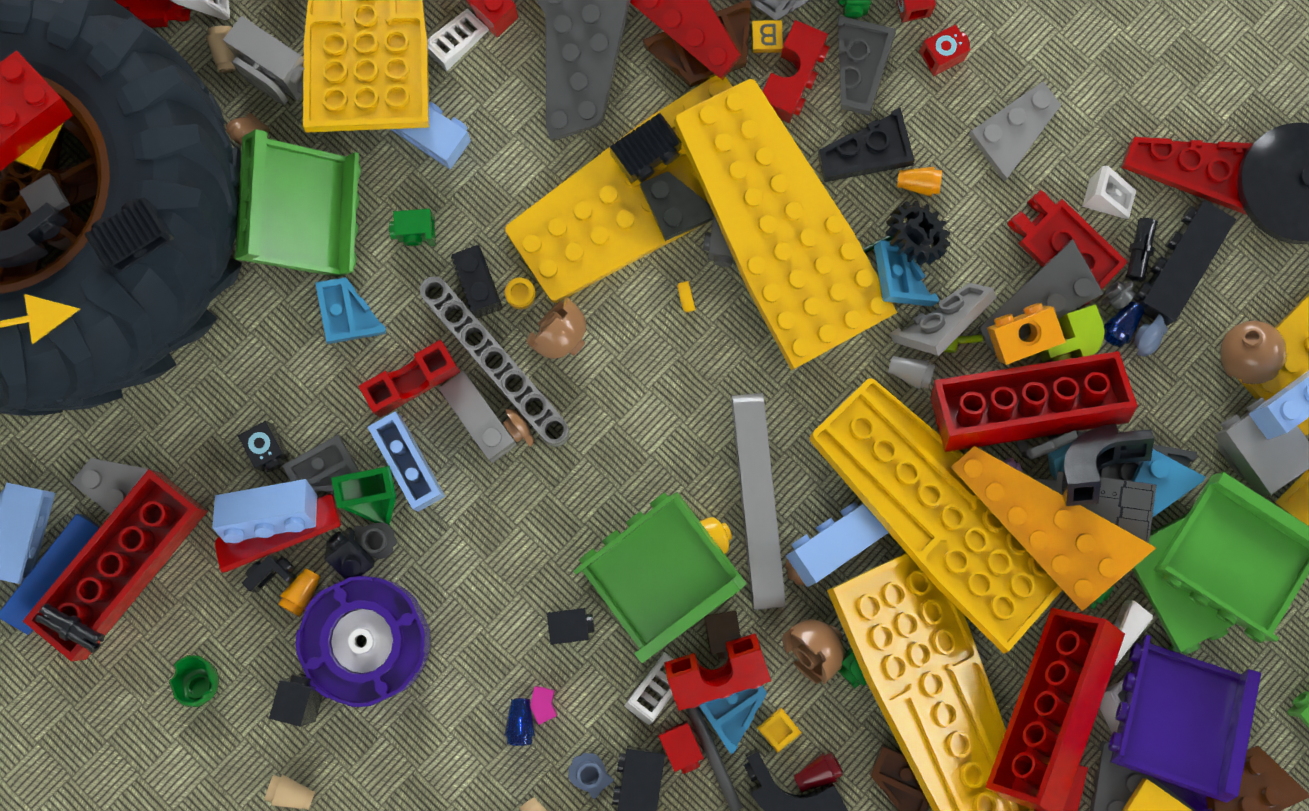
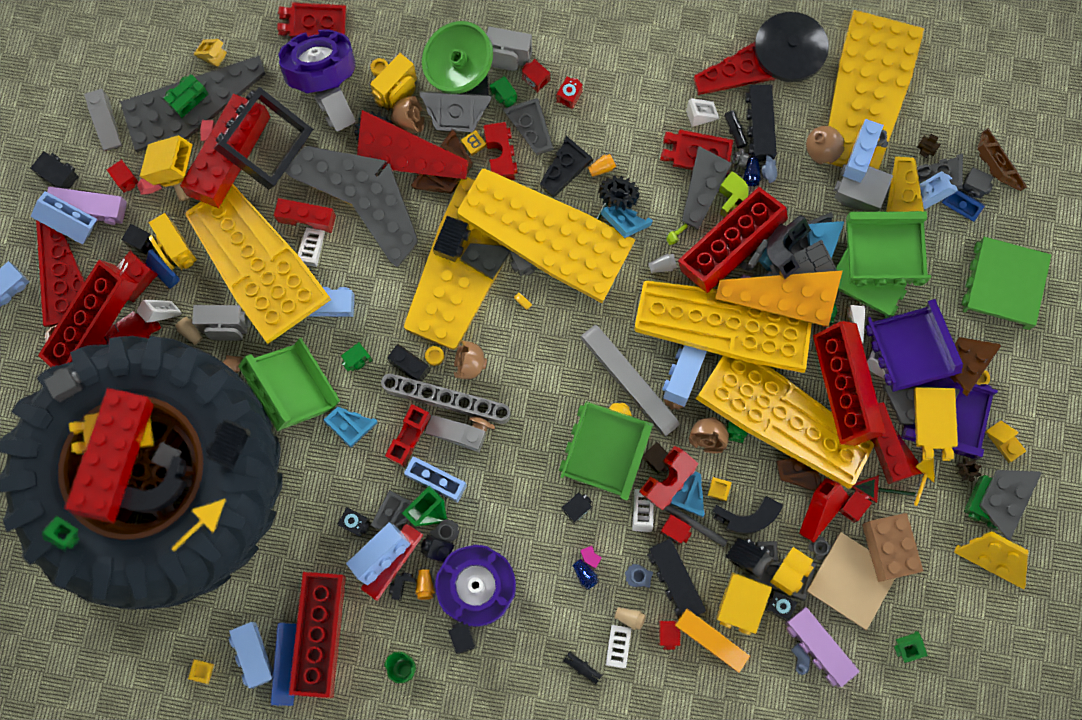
camera: 30 degrees left, 5 degrees down
(70, 628) = (318, 679): black pin -> none
(107, 482) = (283, 596): light grey wing -> none
(288, 793) = (488, 692): tan cone -> none
(819, 772) = (754, 495): dark red cone -> none
(941, 327) = (663, 231): light grey wing -> none
(1015, 128) = (631, 111): light grey wing -> none
(1044, 333) = (716, 202): light orange brick -> none

